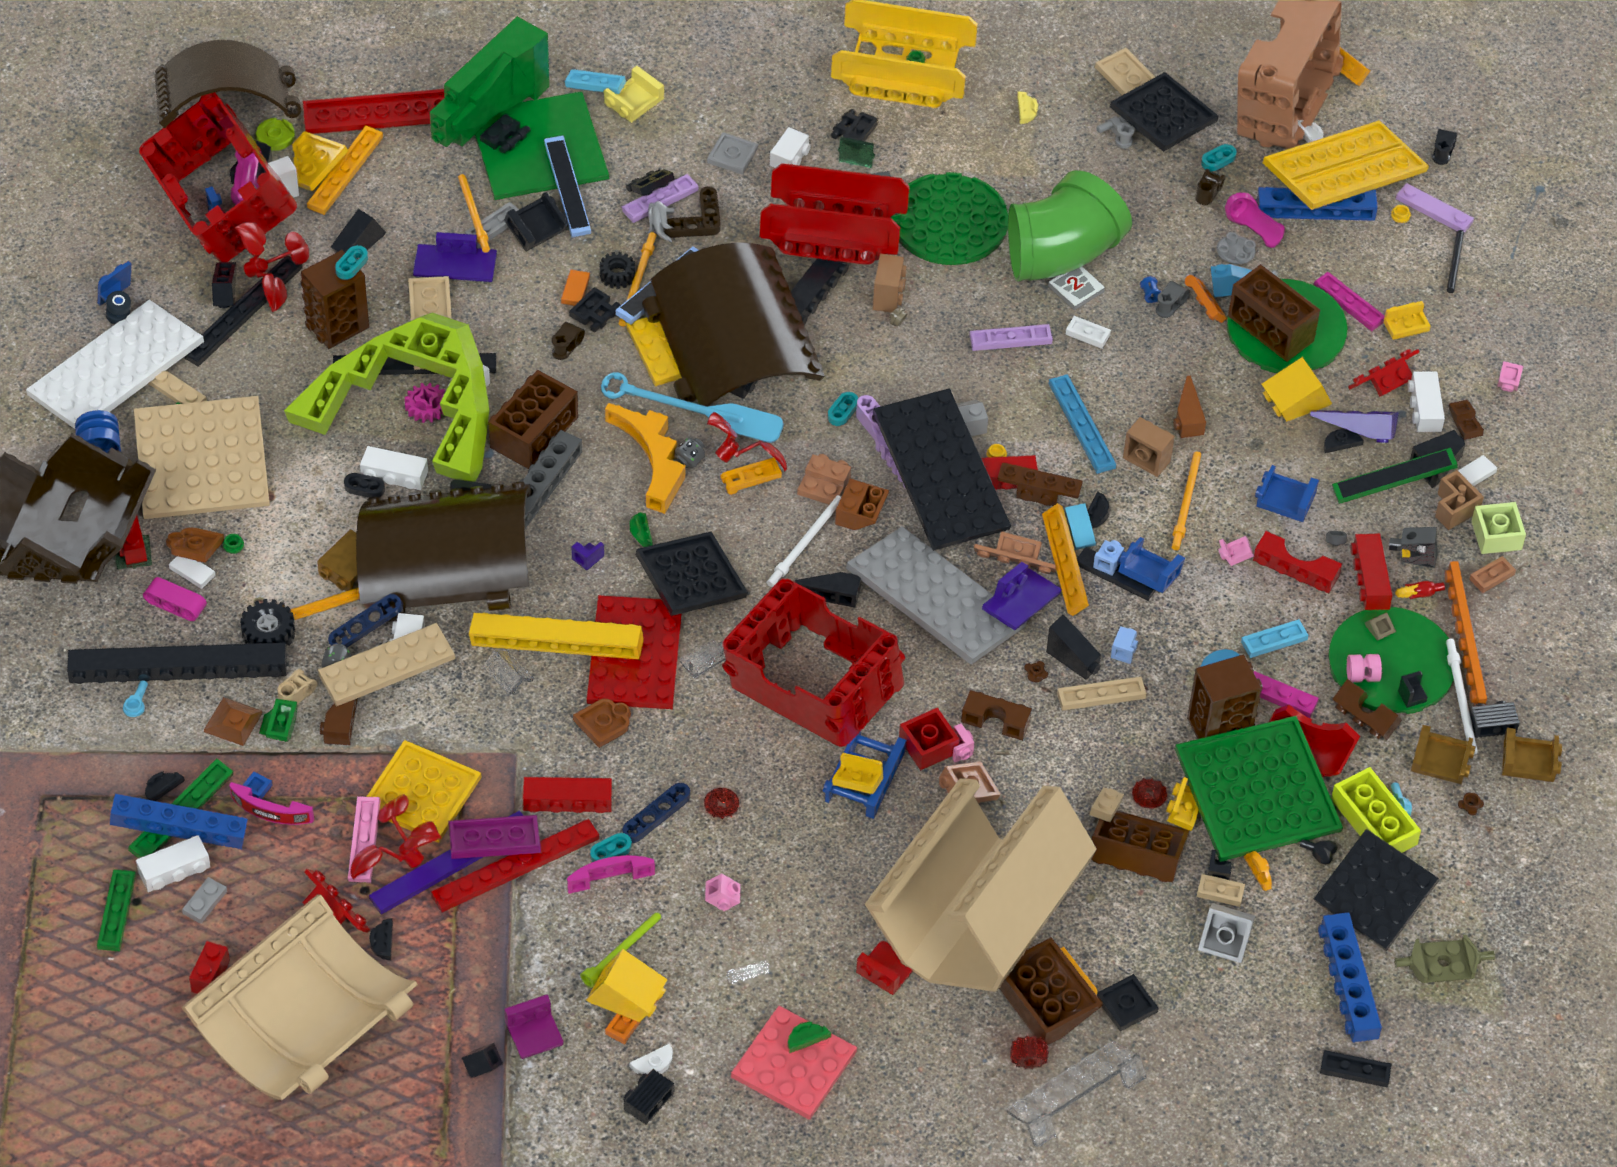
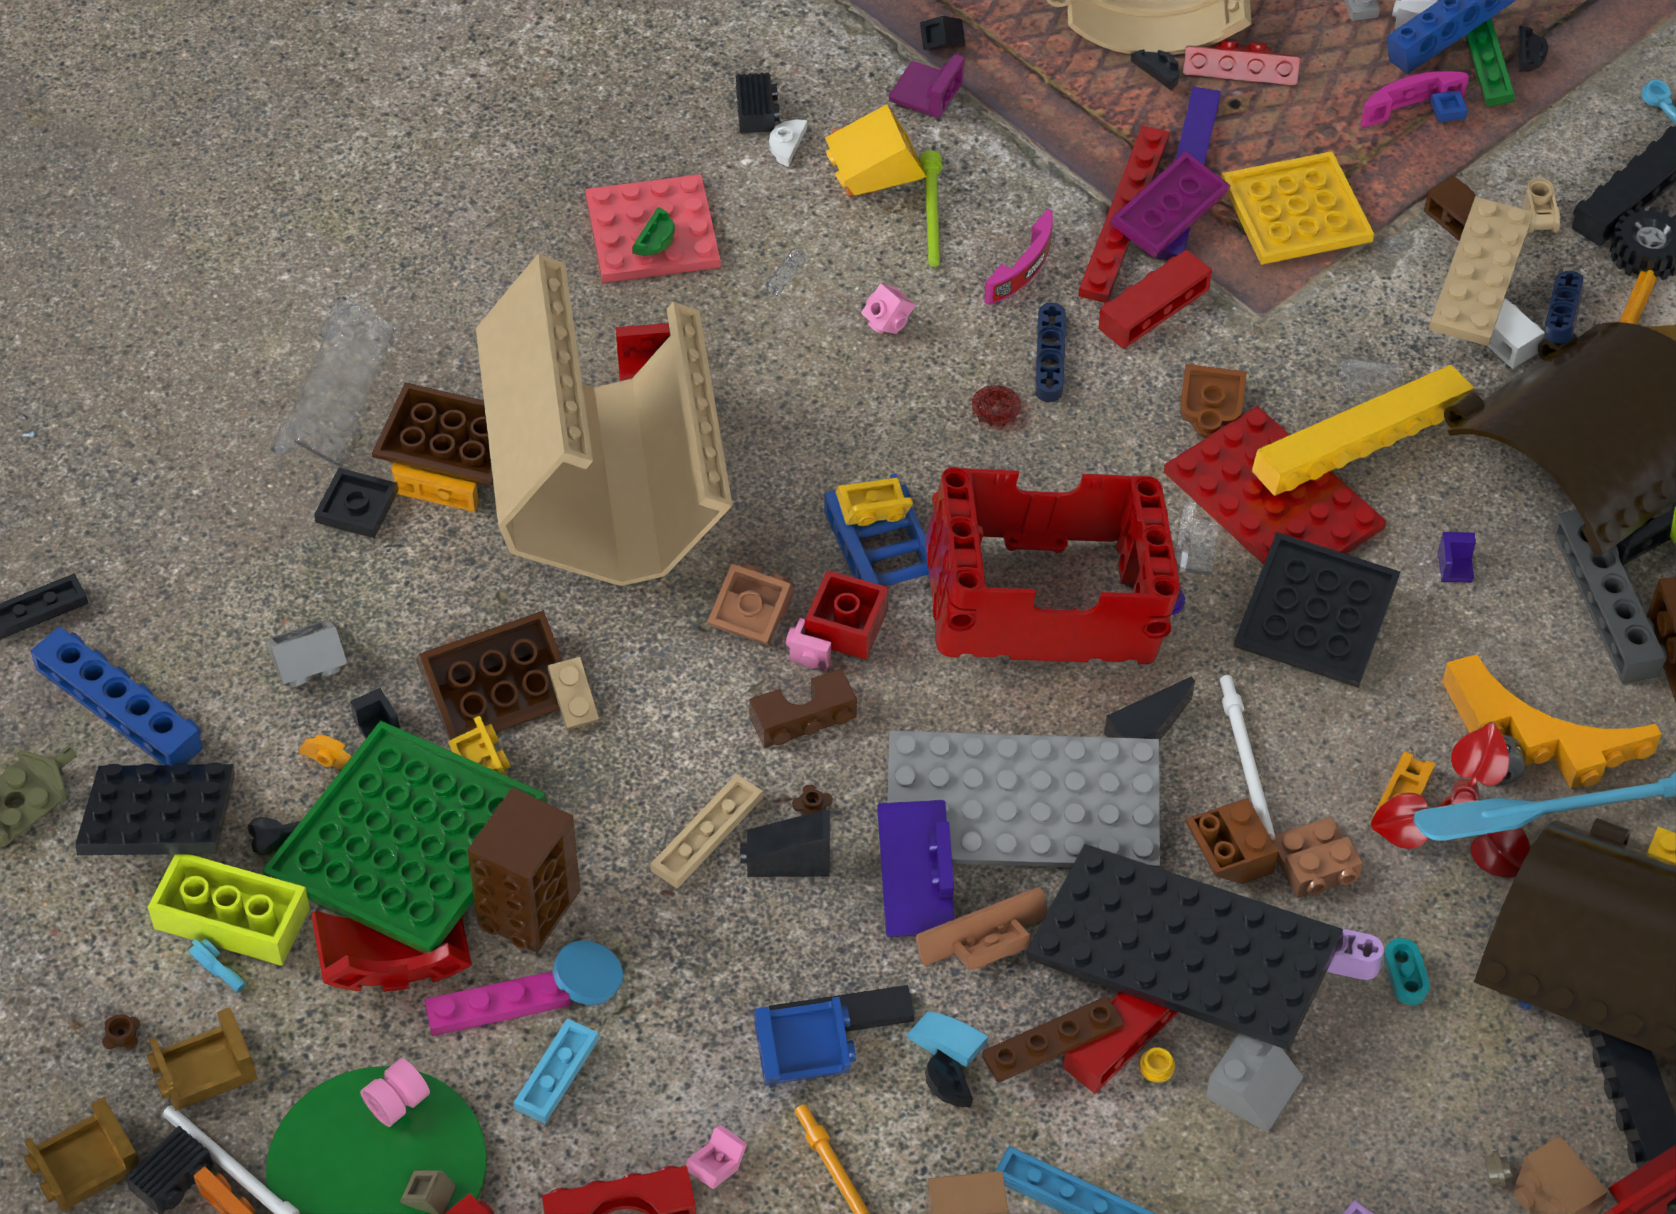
camera: 140 degrees right, 0 degrees up
(233, 721) = (1552, 146): dark orange slope -> none
(280, 720) = (1505, 170): green slope -> none
(335, 654) = (1542, 262): dark grey head -> none
(364, 832) = (1286, 122): bright pink plate -> none
(409, 852) = (1232, 137): red plant -> none
(609, 847) = (1050, 281): teal plate -> none
(640, 529) = (1439, 628): green plate -> none
(1029, 1052) = (414, 367): clear red gear -> none
(1065, 559) = (929, 980): light orange plate -> none
(1109, 553) = (864, 1005): light blue brick -> none
(1124, 645) = (736, 911): light blue brick -> none
(1145, 799) = (543, 766): clear red gear -> none
(1220, 890) = (336, 698): tan plate -> none
(1350, 700) = (325, 1042): reddish brown arch -> none
(1411, 689) = (308, 1115): black panel -> none

